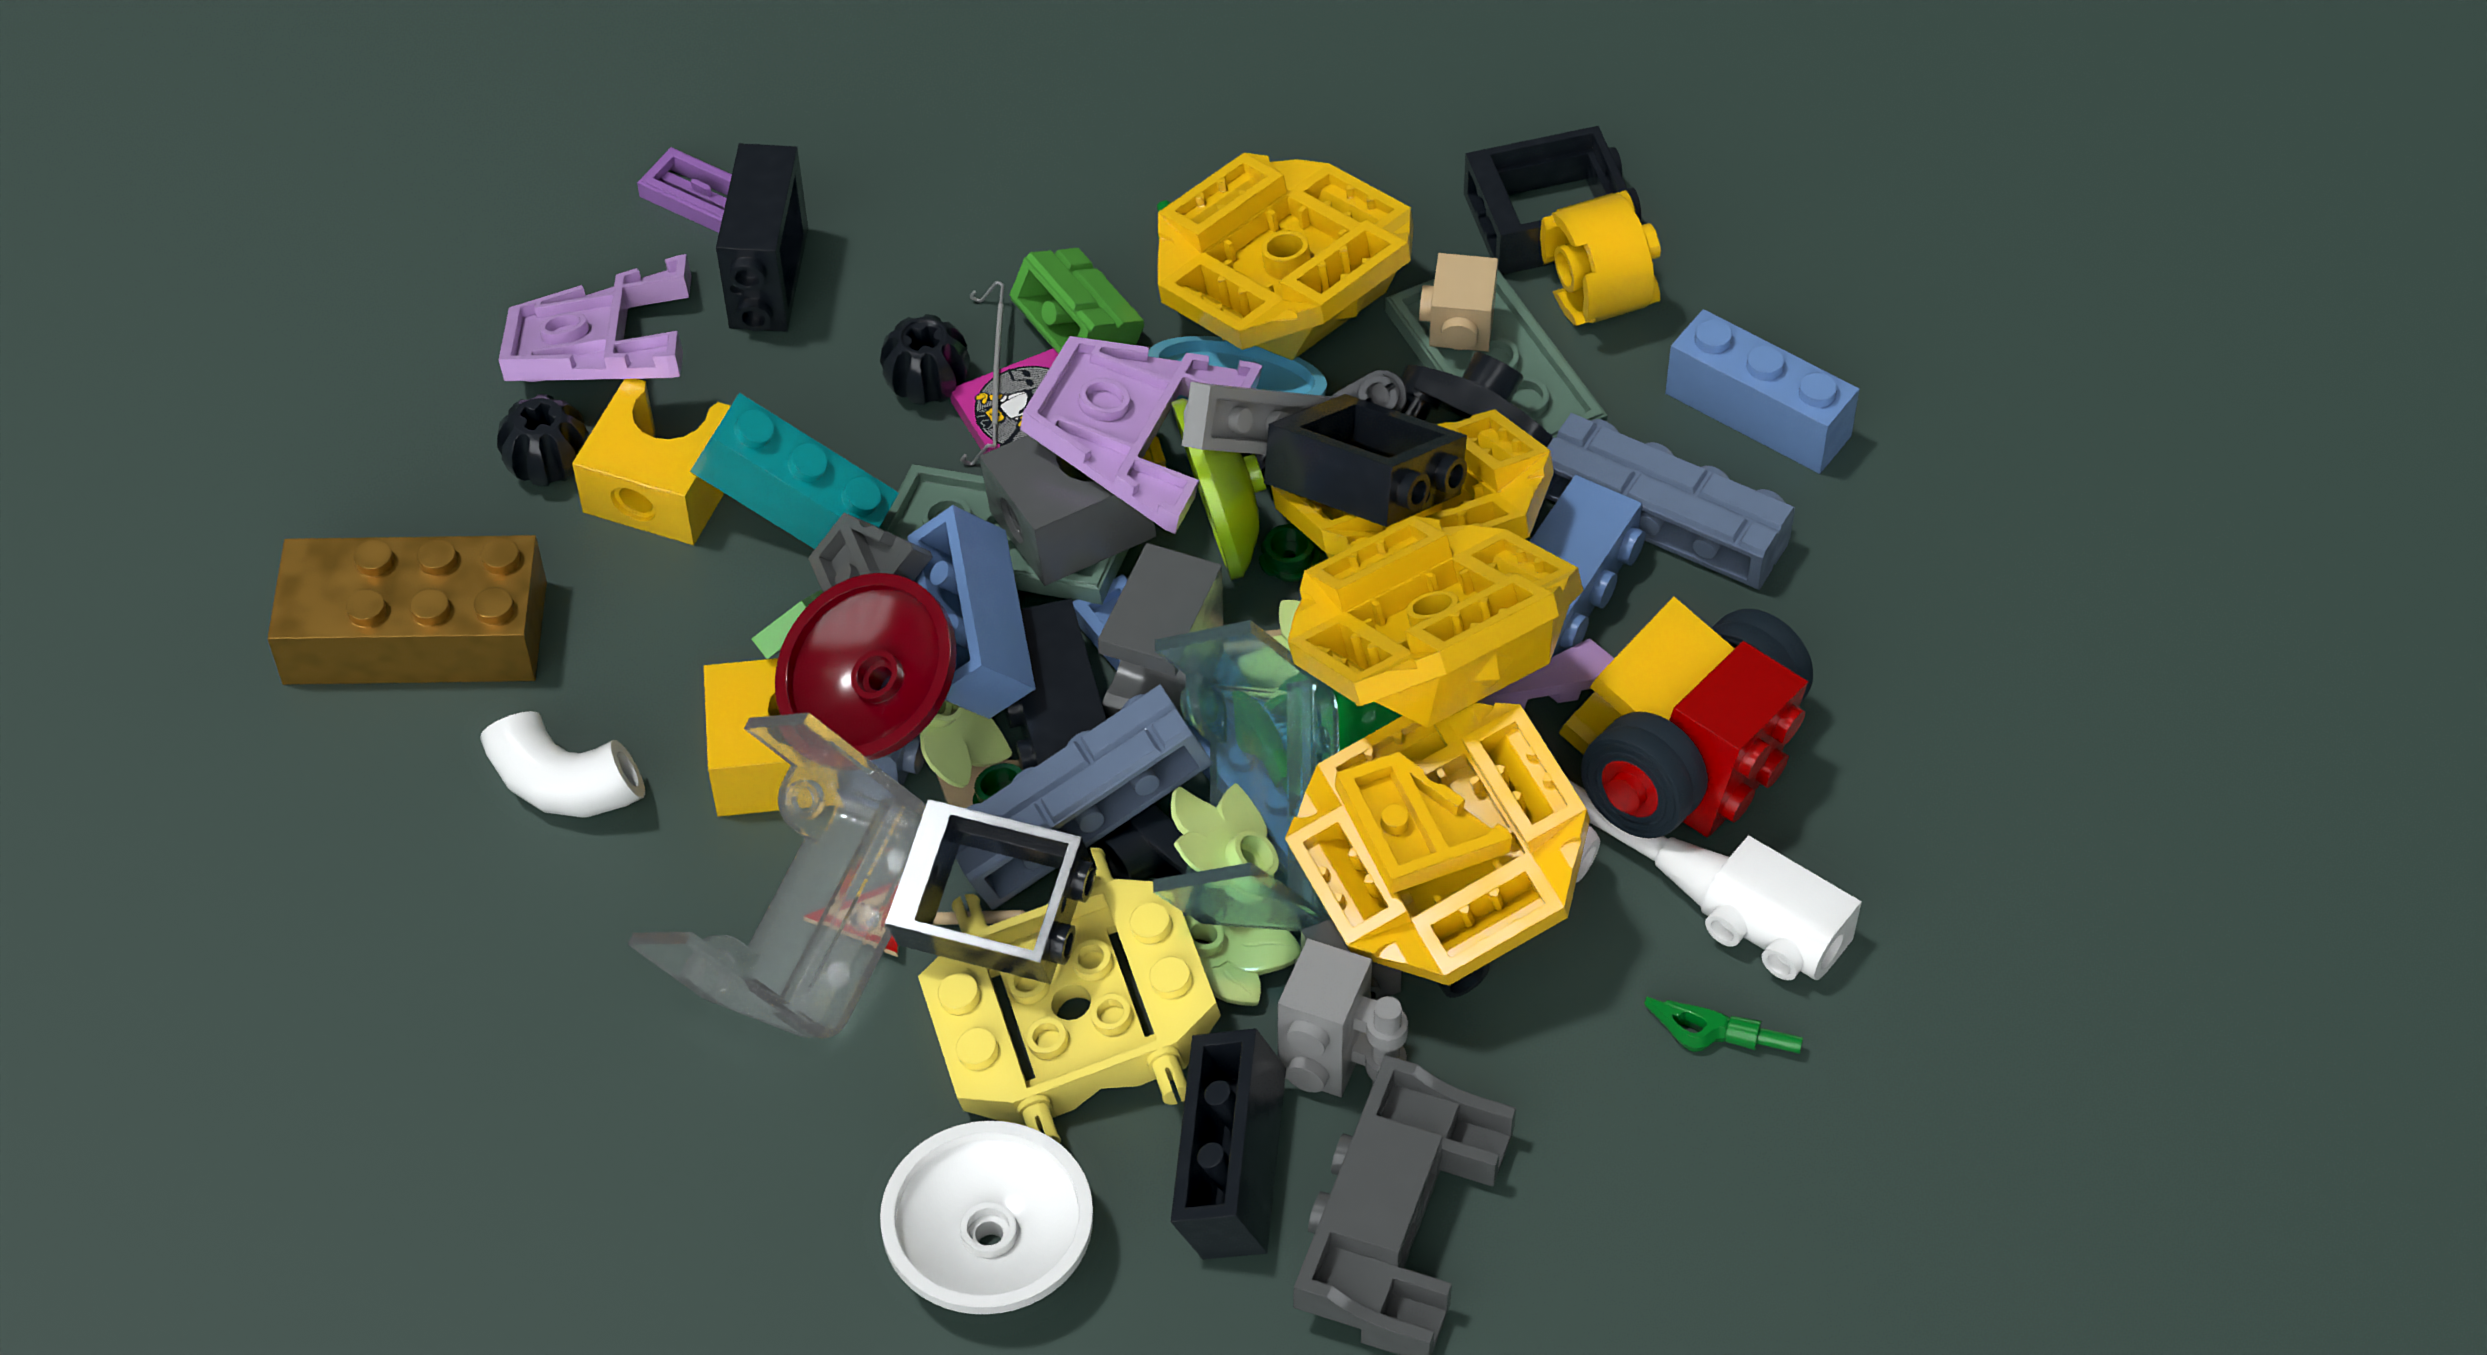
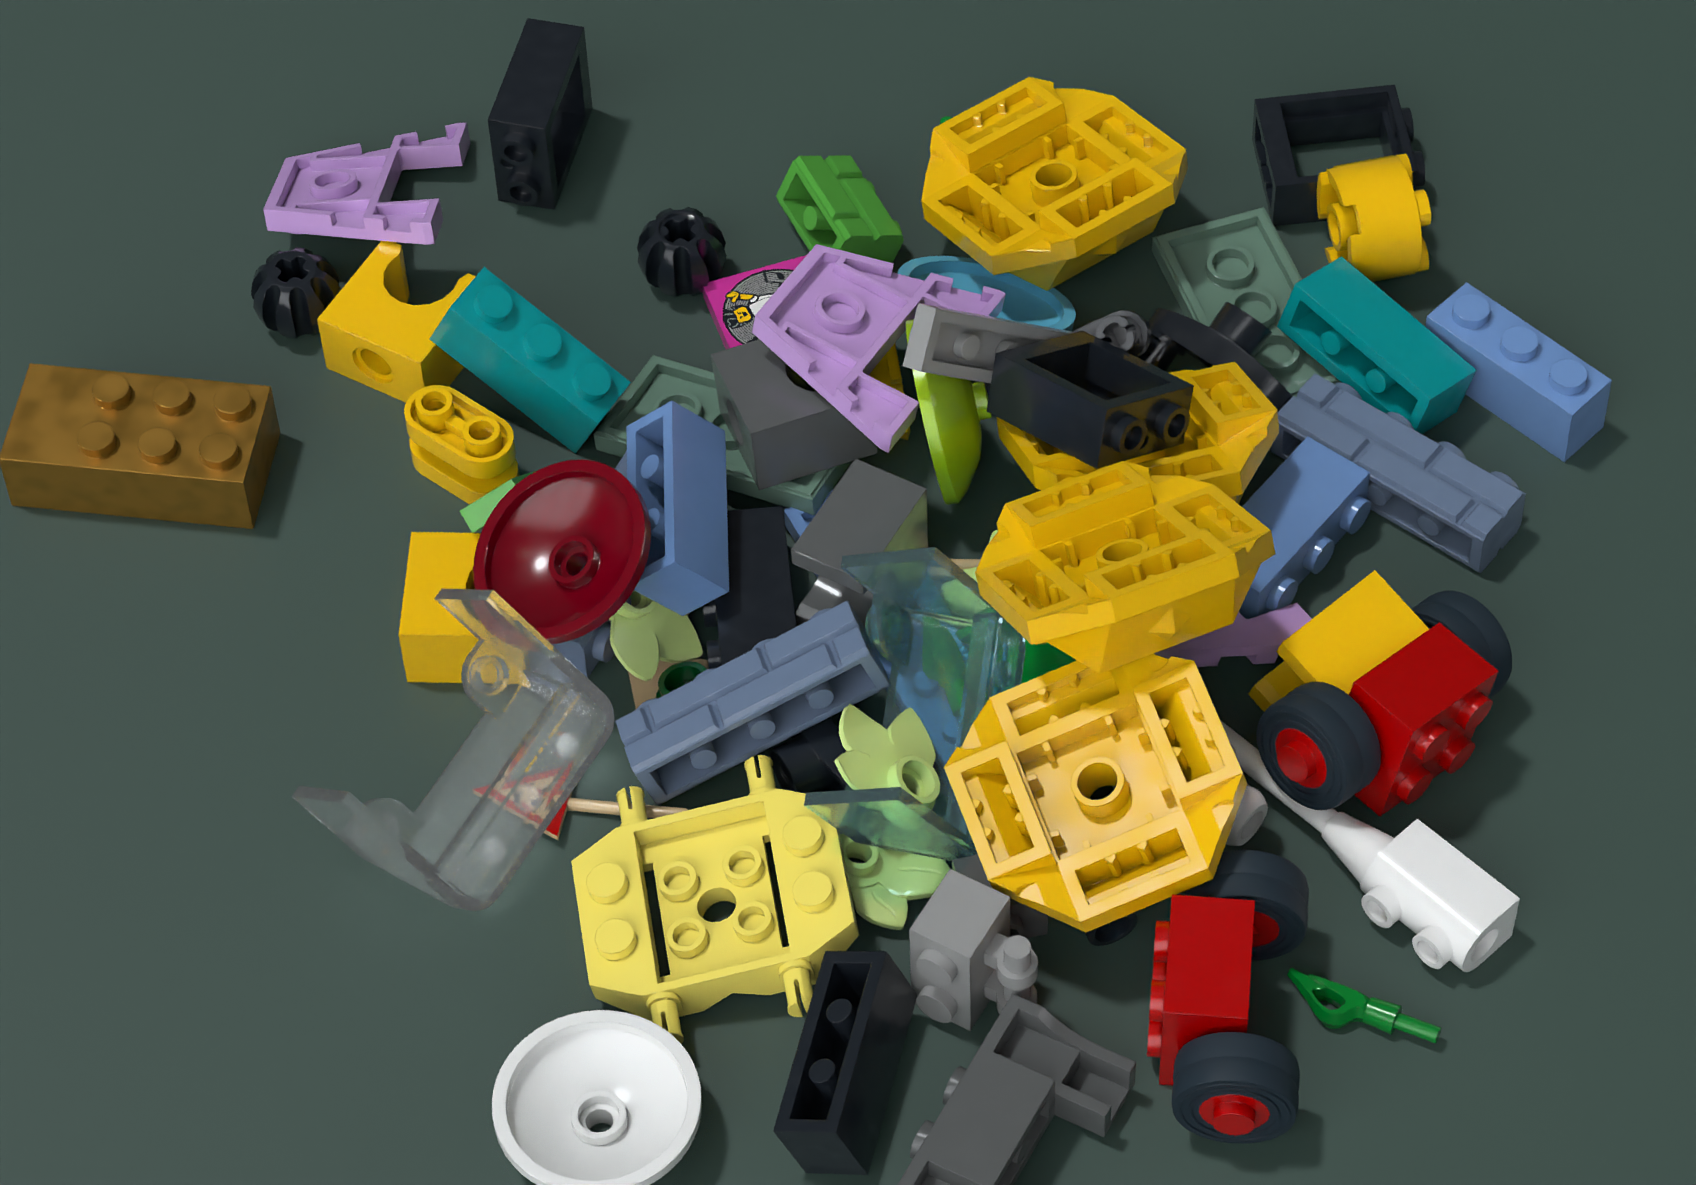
camera: 10 degrees right, 0 degrees up
(560, 779) = (254, 626): white cylinder -> none
(686, 198) = (477, 66): medium lavender tile -> none
(735, 573) = (459, 442): none -> yellow brick
(862, 548) = (584, 433): dark grey wing -> none
(930, 865) = (594, 756): window -> none
(996, 368) = (752, 262): piece -> none
(1288, 542) = (1004, 474): dark green plate -> none
(1413, 824) = (1071, 767): yellow wing -> none
(1460, 302) = (1224, 250): tan brick -> none
(1574, 1037) = (1223, 1078): none -> brick
(1623, 379) = (1375, 345): none -> teal brick

